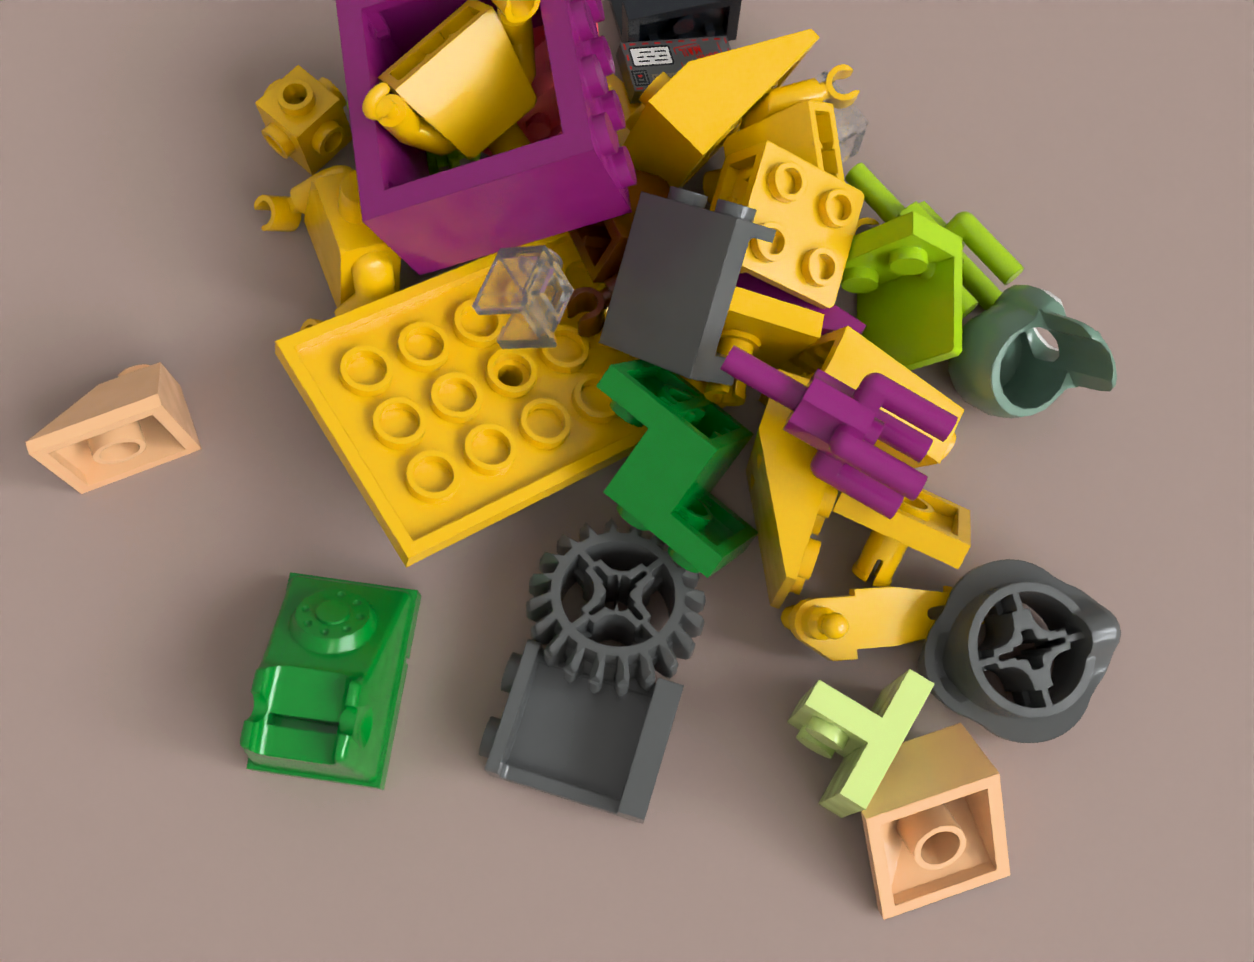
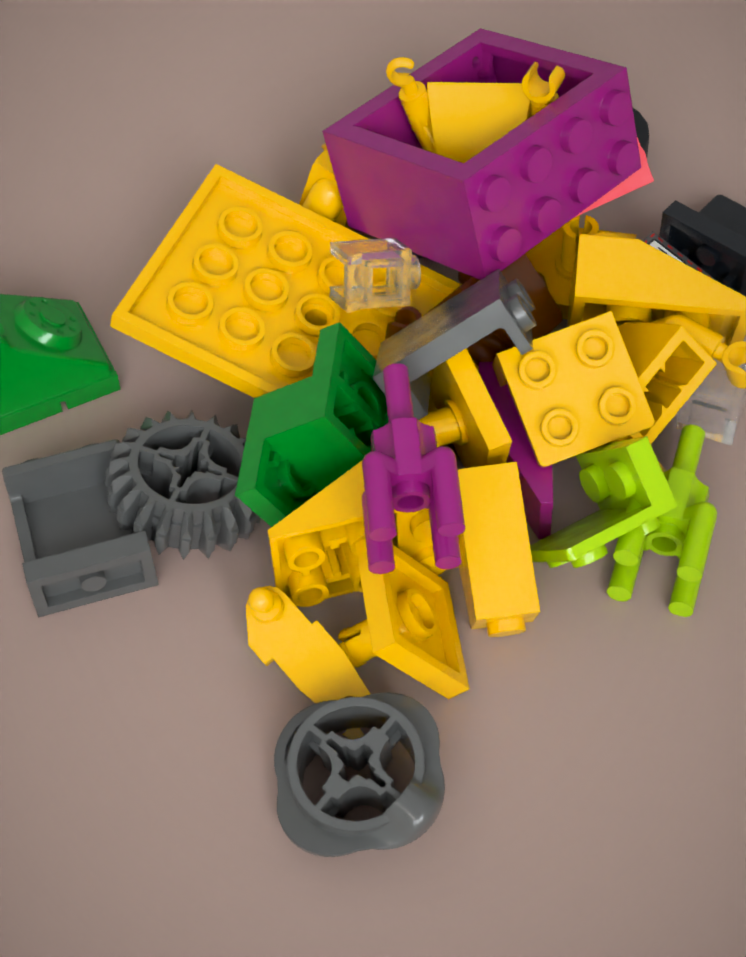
camera: 60 degrees right, 20 degrees down
(118, 430) = (107, 156): light nougat slope -> none
(863, 736) = (187, 689): yellowish green bracket -> none
(935, 823) = (160, 792): light nougat slope -> none
(1011, 367) = (623, 623): sand green piece -> none

